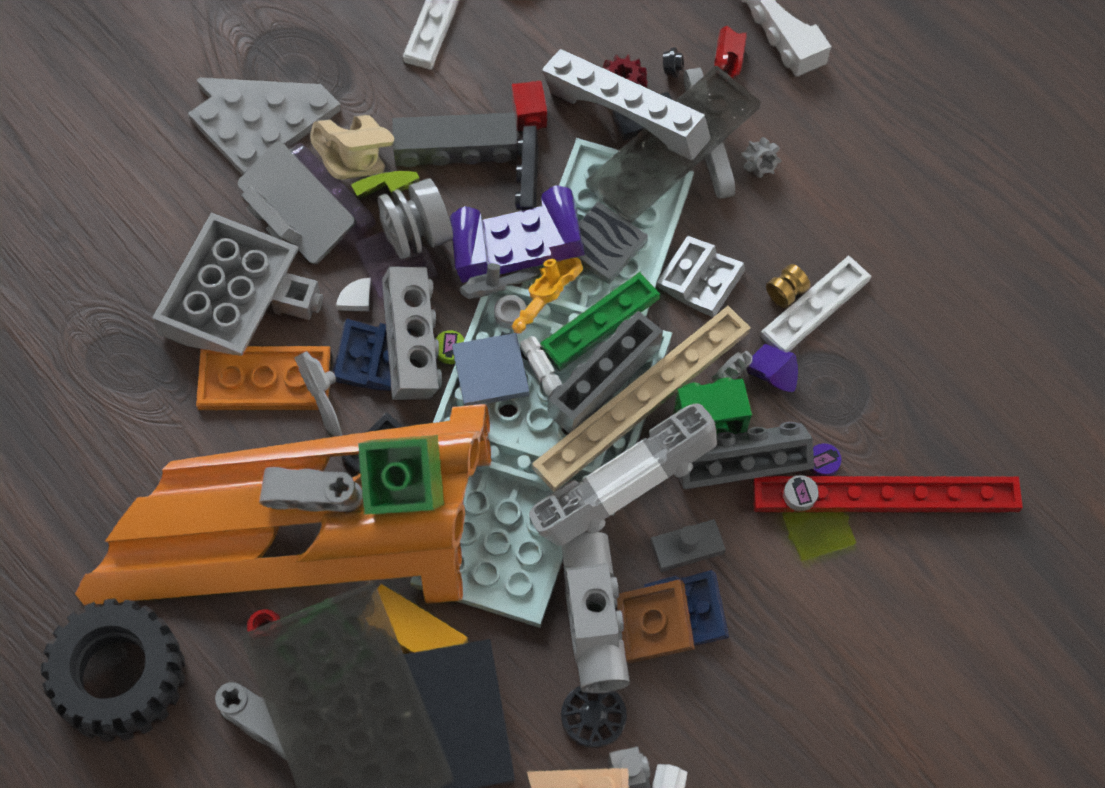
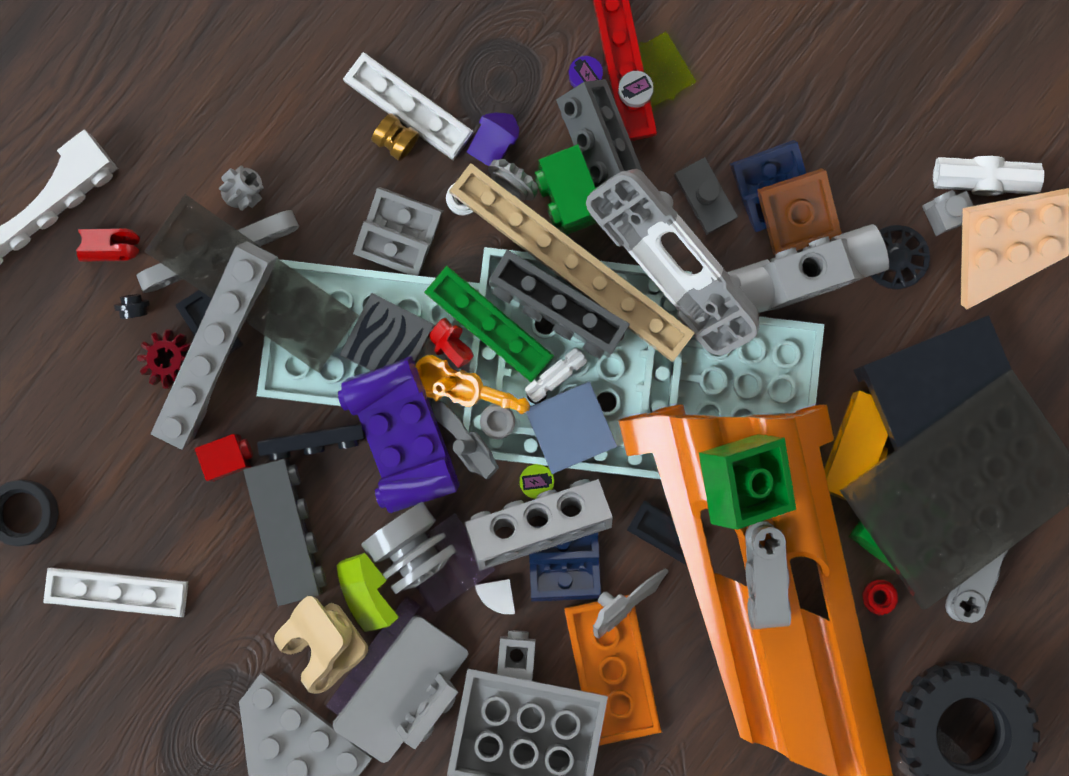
camera: 100 degrees left, 20 degrees up
(587, 288) = (447, 341): none -> red piece

